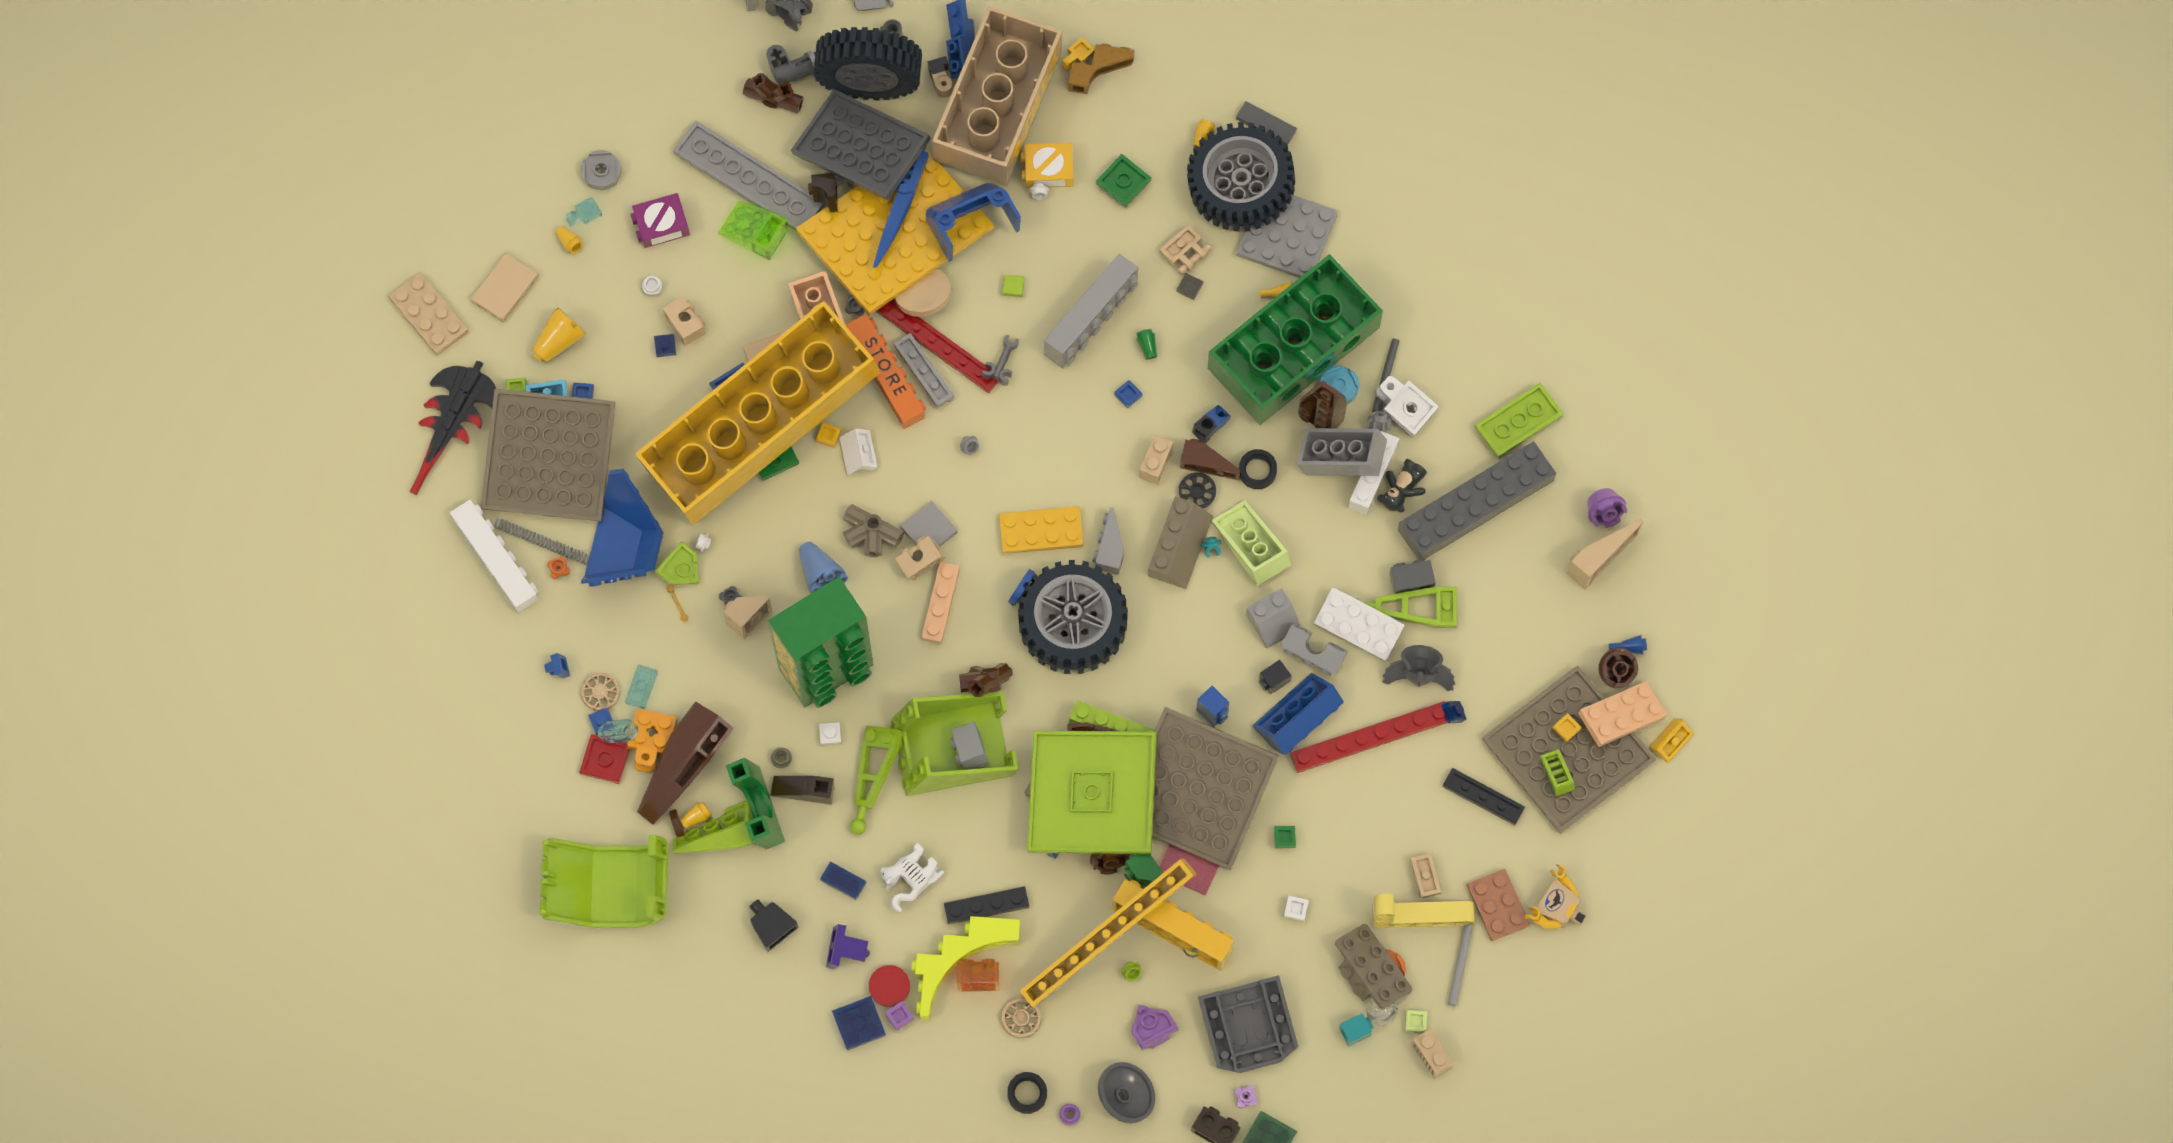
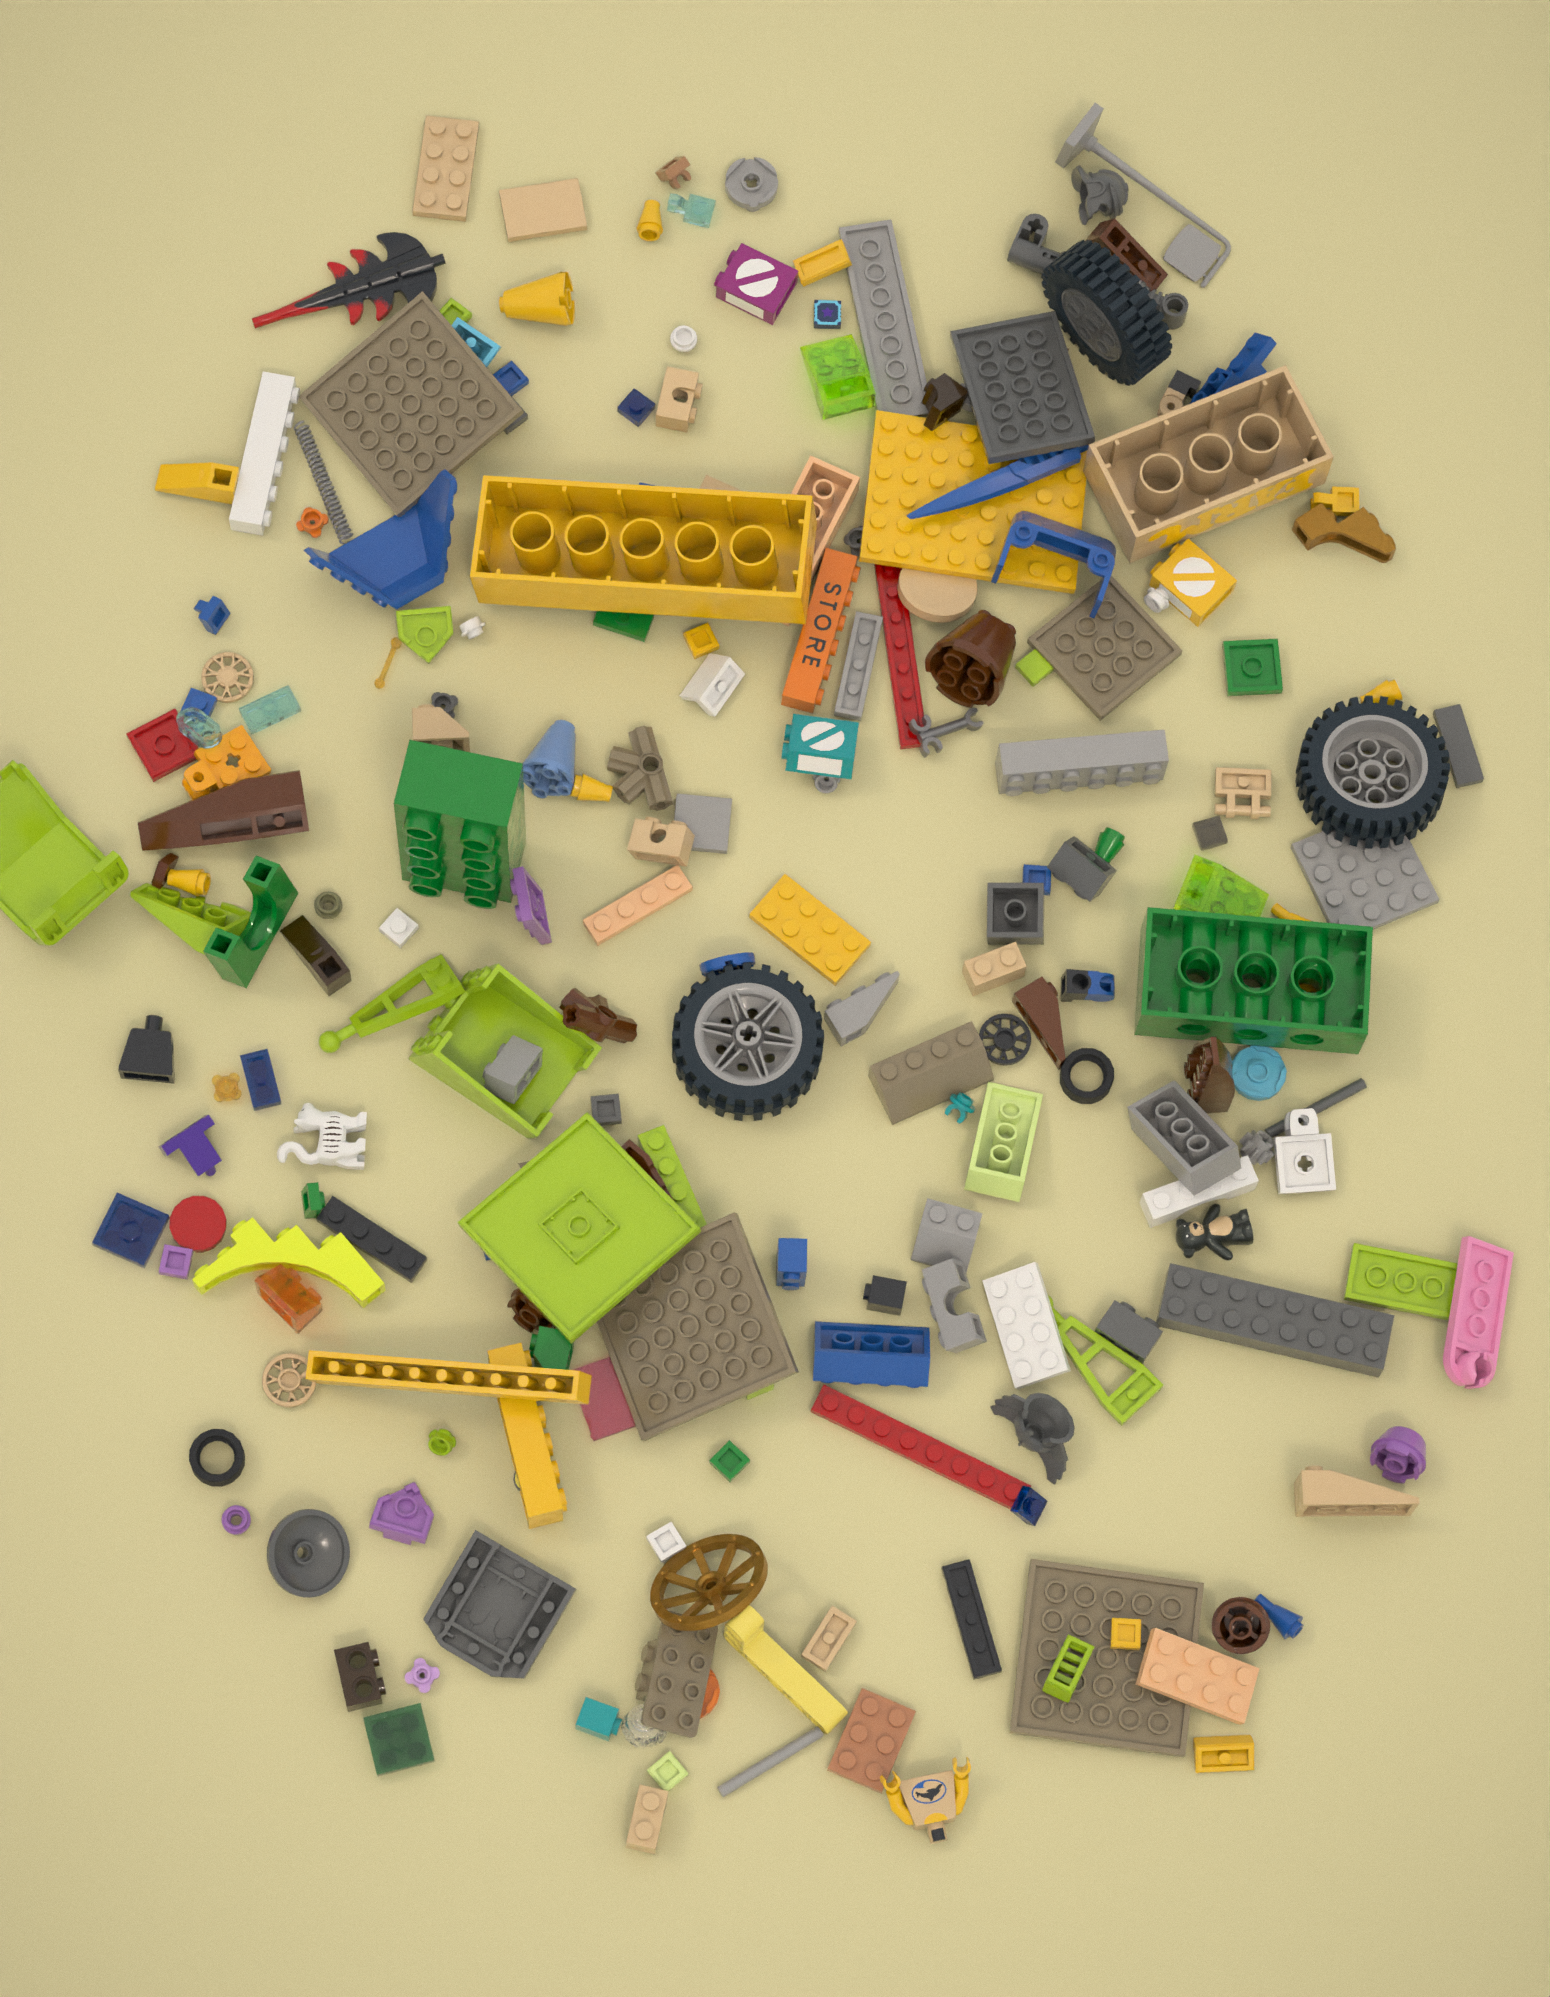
camera: 40 degrees right, 0 degrees up
(476, 602) = (199, 480): none -> yellow slope
(552, 200) = (673, 170): none -> medium nougat tile
(683, 176) = (822, 262): none -> yellow tile
(713, 202) = (827, 314): none -> dark blue tile
(773, 94) = (993, 263): reddish brown piece -> none
(825, 22) = (1121, 243): none -> reddish brown slope
(835, 901) = (232, 1093): none -> clear yellow plate
(855, 565) = (590, 789): none -> yellow cone
(891, 655) = (531, 905): none -> medium lavender plate
(936, 915) = (312, 1200): none -> green plate
(950, 429) = (820, 746): none -> teal brick
(983, 310) = (973, 660): none -> reddish brown cone
(1036, 721) = (606, 1109): none -> dark grey plate
(1043, 246) = (1105, 655): none -> dark tan plate
(1138, 420) = (1015, 913): none -> dark grey brick
(1147, 366) = (1081, 869): none -> dark grey brick
(1226, 313) = (1218, 890): none -> clear neon green slope
(1345, 906) = (711, 1586): none -> pearl gold wheel
(1570, 401) = (1477, 1313): none -> bright pink plate

